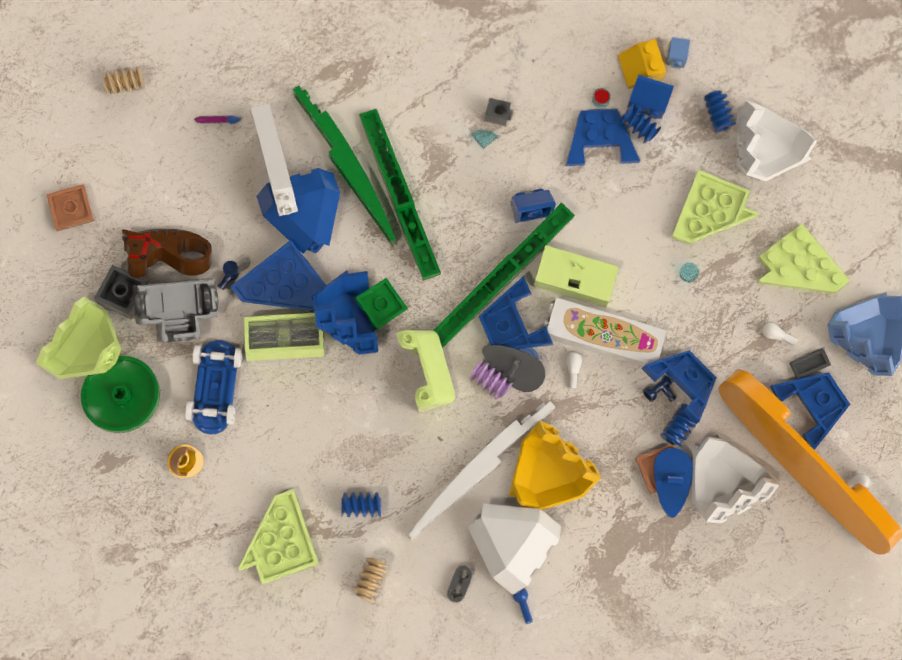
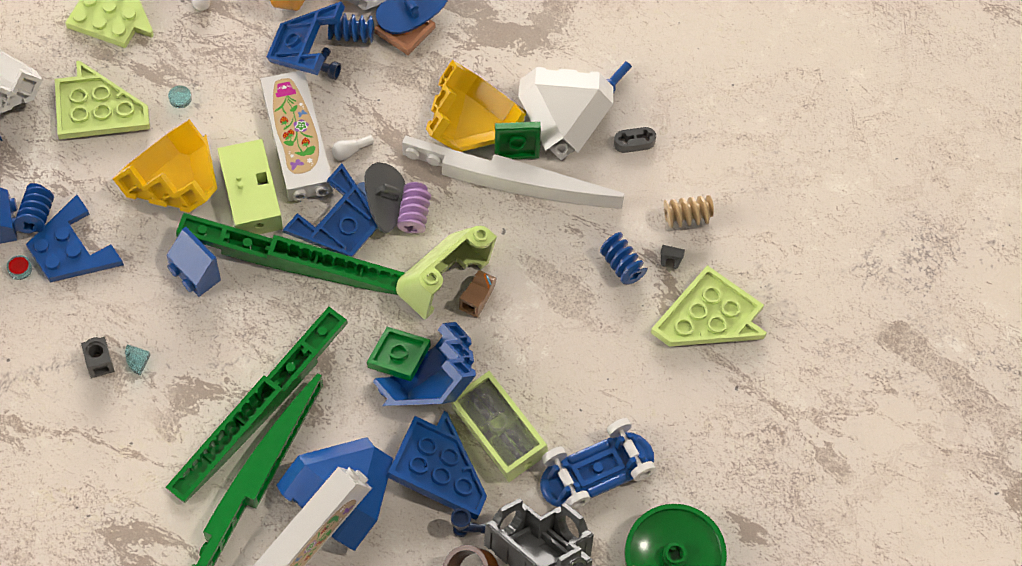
camera: 115 degrees left, 15 degrees down
(184, 461) = (699, 450): yellow piece -> none
(345, 545) = (671, 252): none -> dark grey tile
(397, 386) = (477, 293): none -> medium nougat leg
(502, 486) = (517, 140): none -> green tile
(619, 229) = (172, 171): none -> yellow panel

